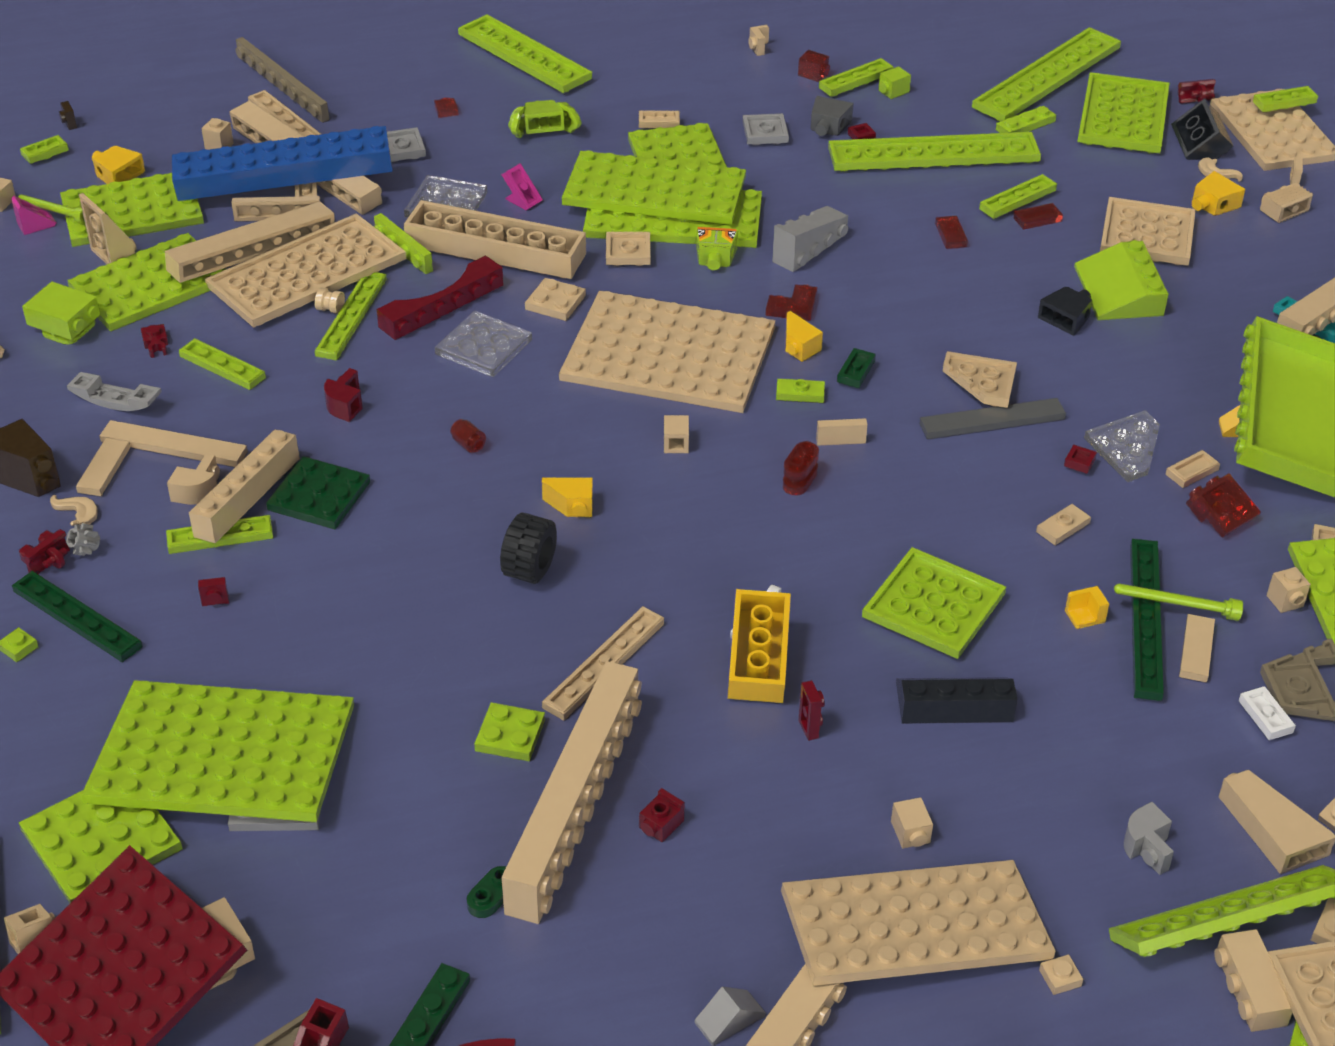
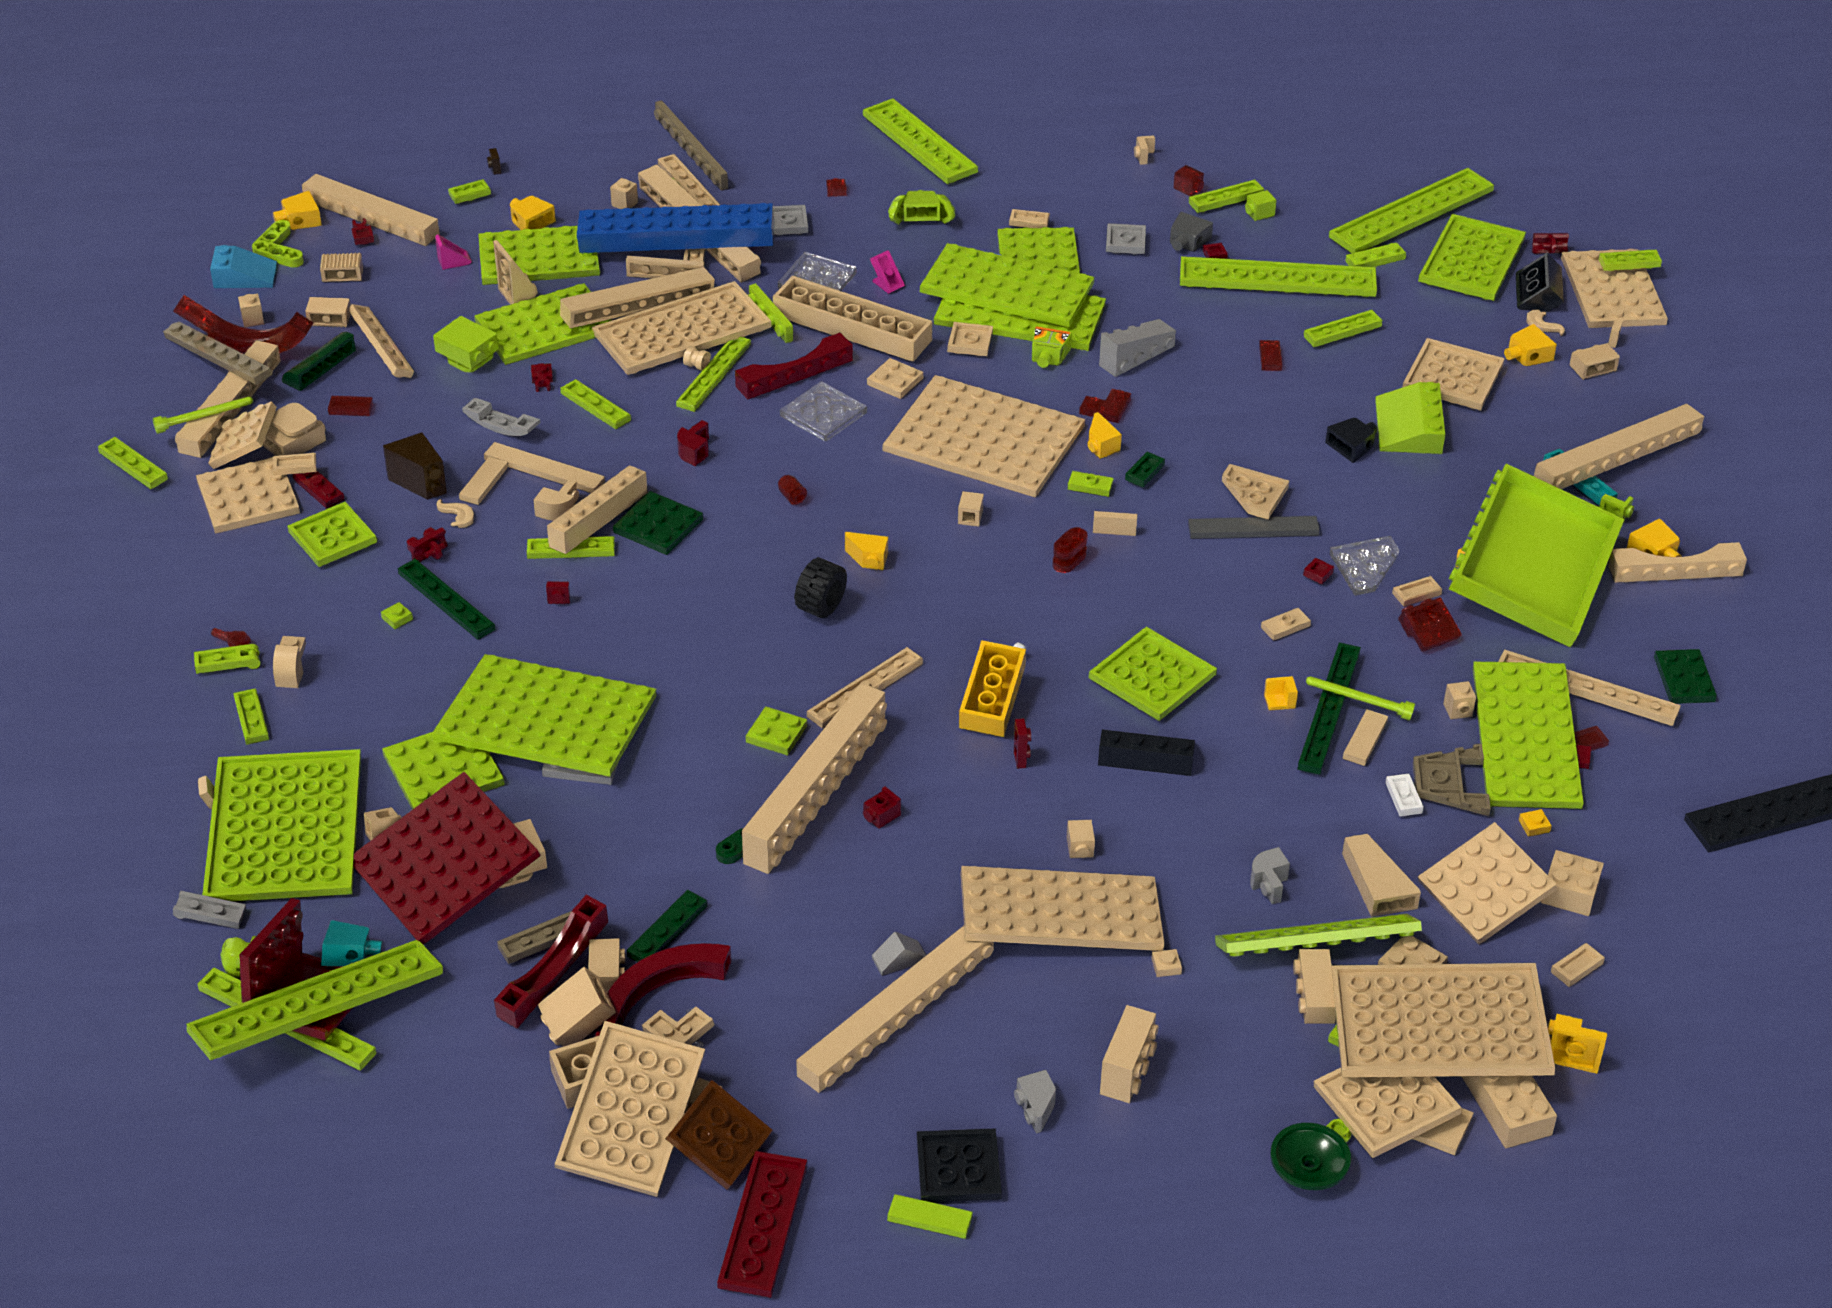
camera: 10 degrees right, 0 degrees up
(76, 213) = (490, 255): lime piece -> none
(83, 539) = (459, 538): light grey gear -> none
(1038, 216) = (1356, 349): clear red tile -> none

